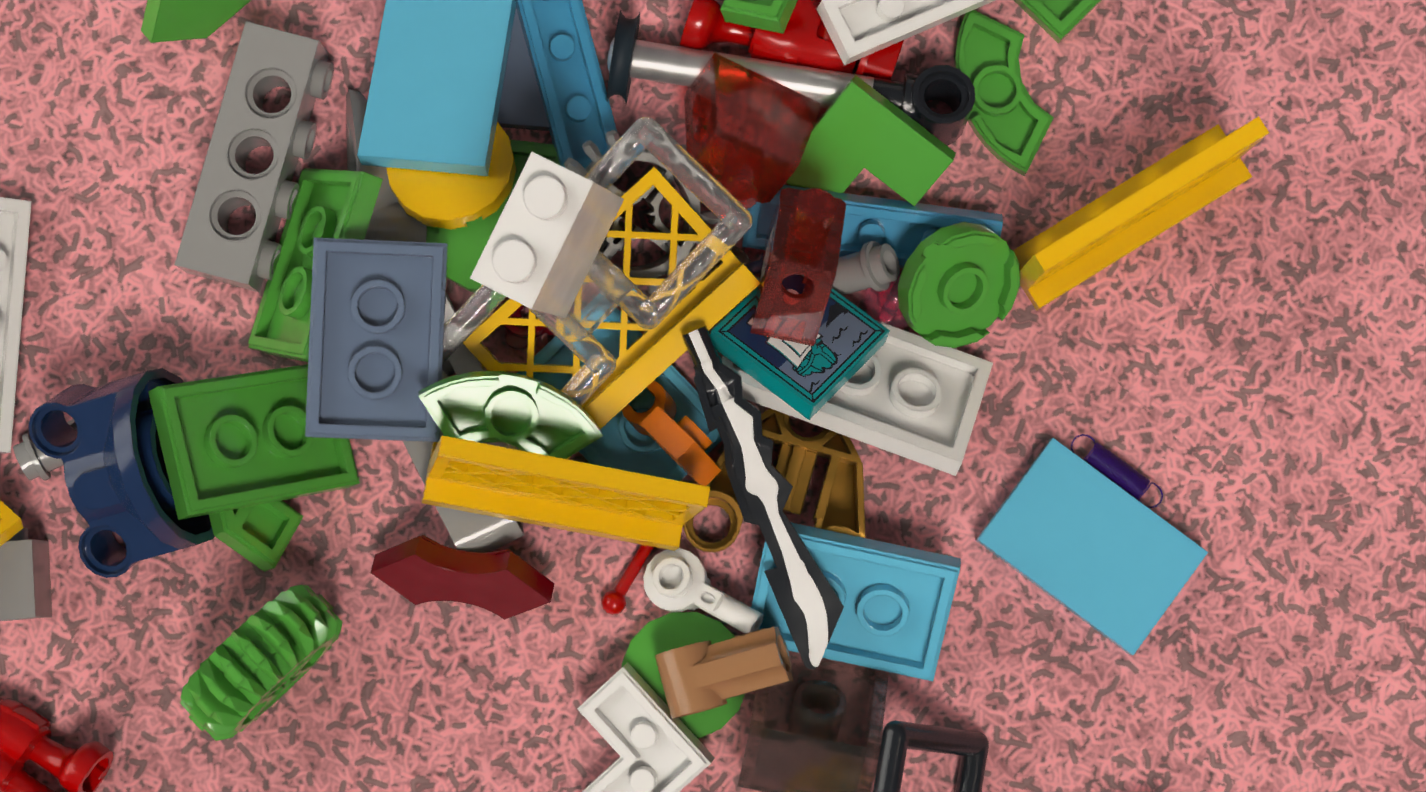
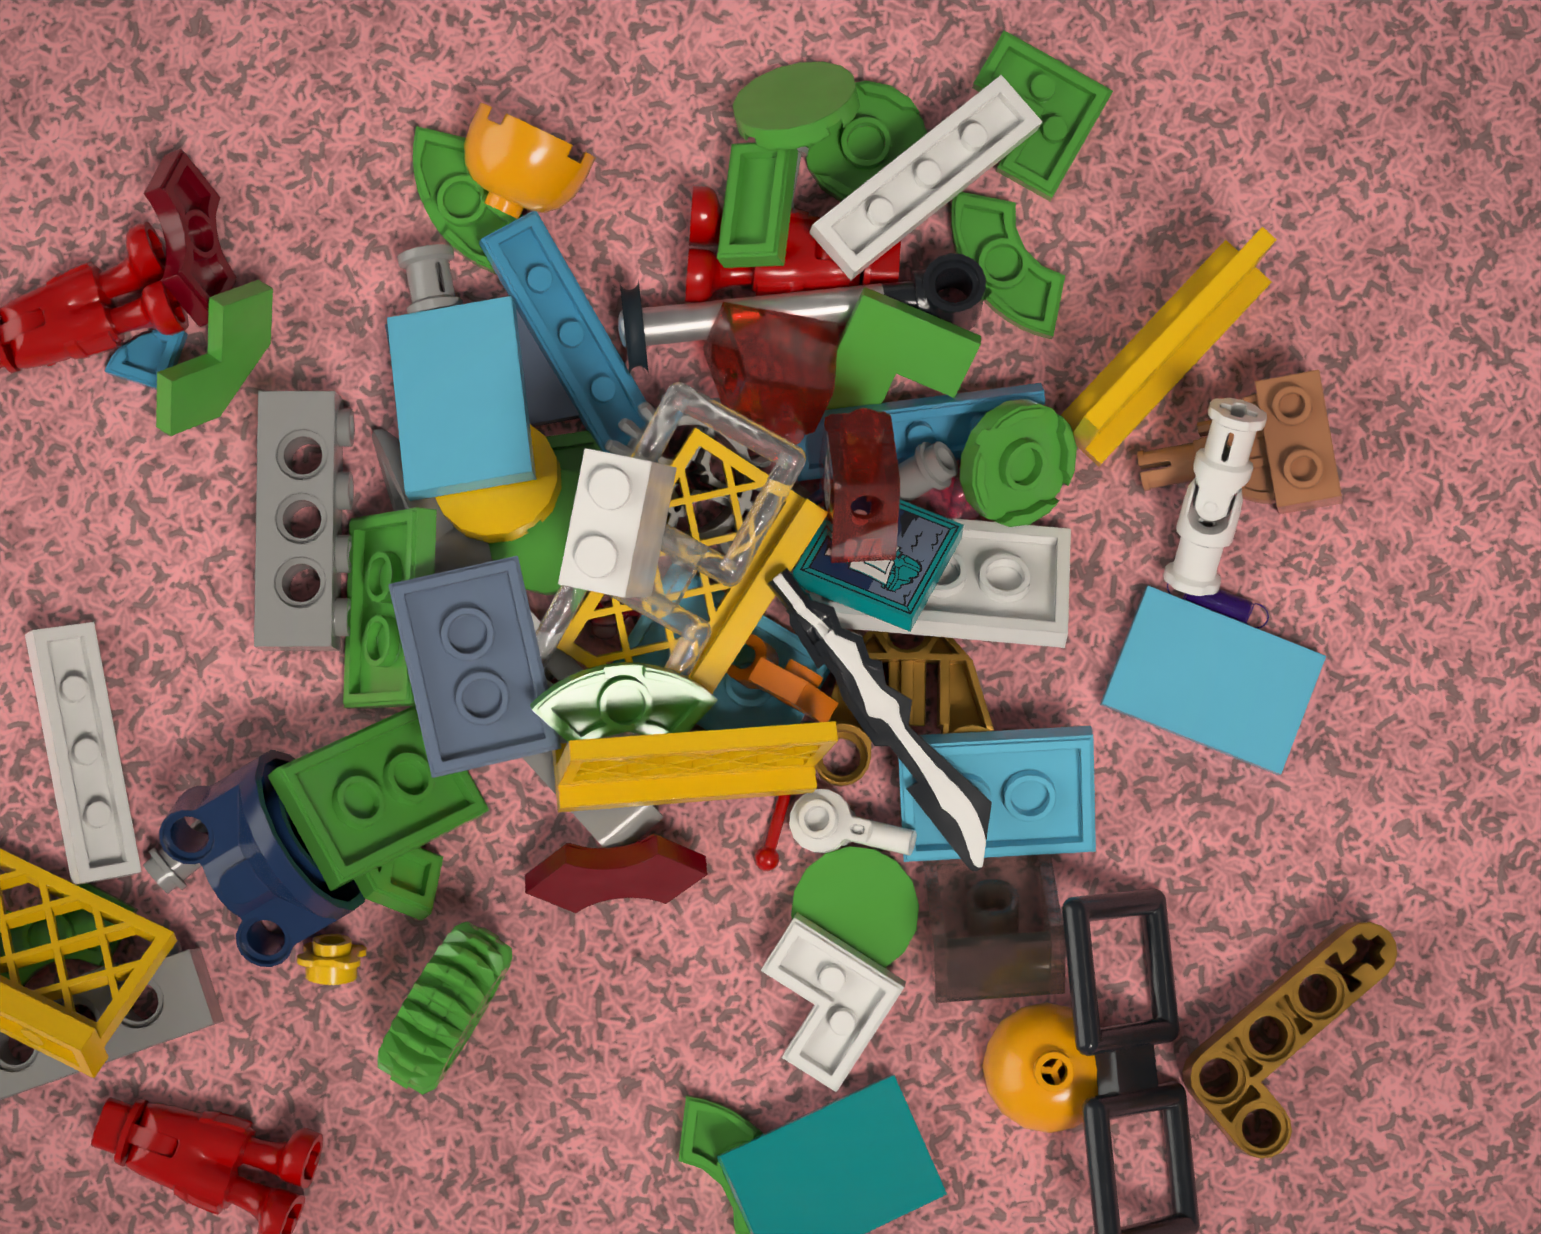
camera: 15 degrees left, 0 degrees up
(168, 586) = (331, 959): none -> yellow plate
(707, 674) = (879, 902): medium nougat piece -> none
(1152, 346) = (1220, 472): none -> white piece
(1209, 336) = (1289, 455): none -> nougat brick

